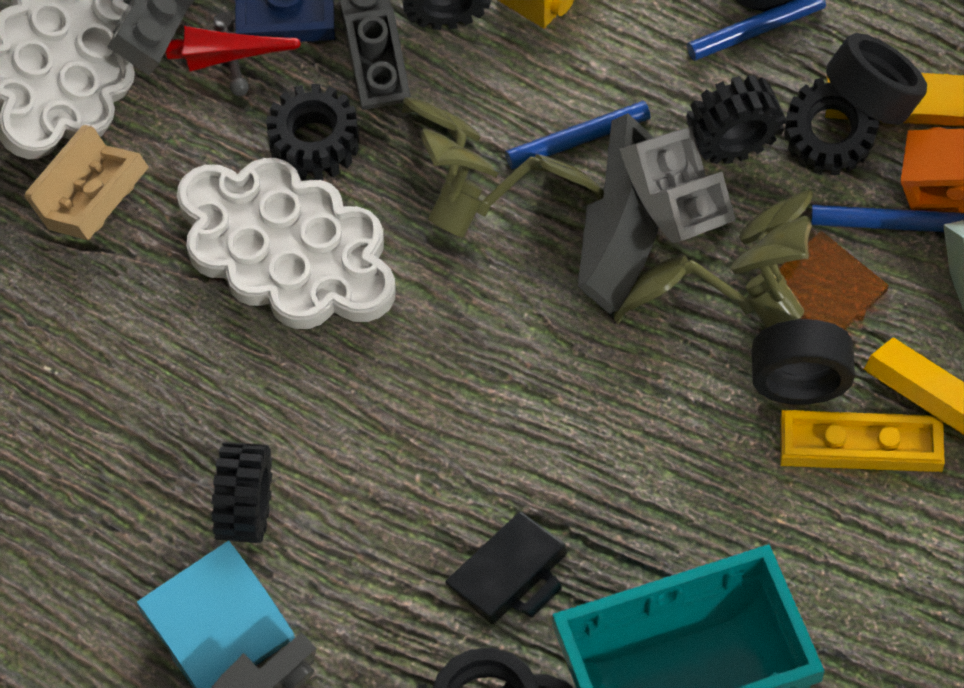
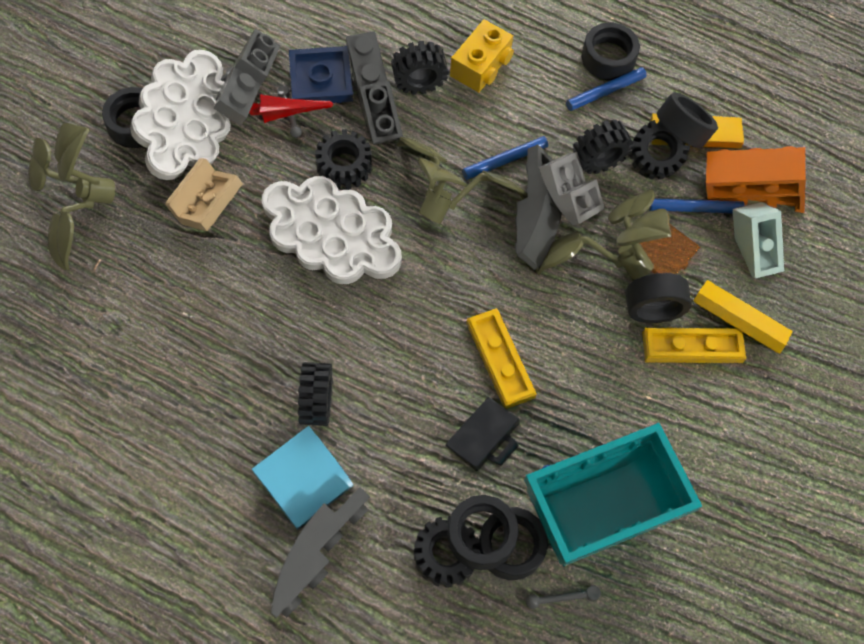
camera: 10 degrees left, 5 degrees up
(544, 451) = (501, 358): none -> yellow tile

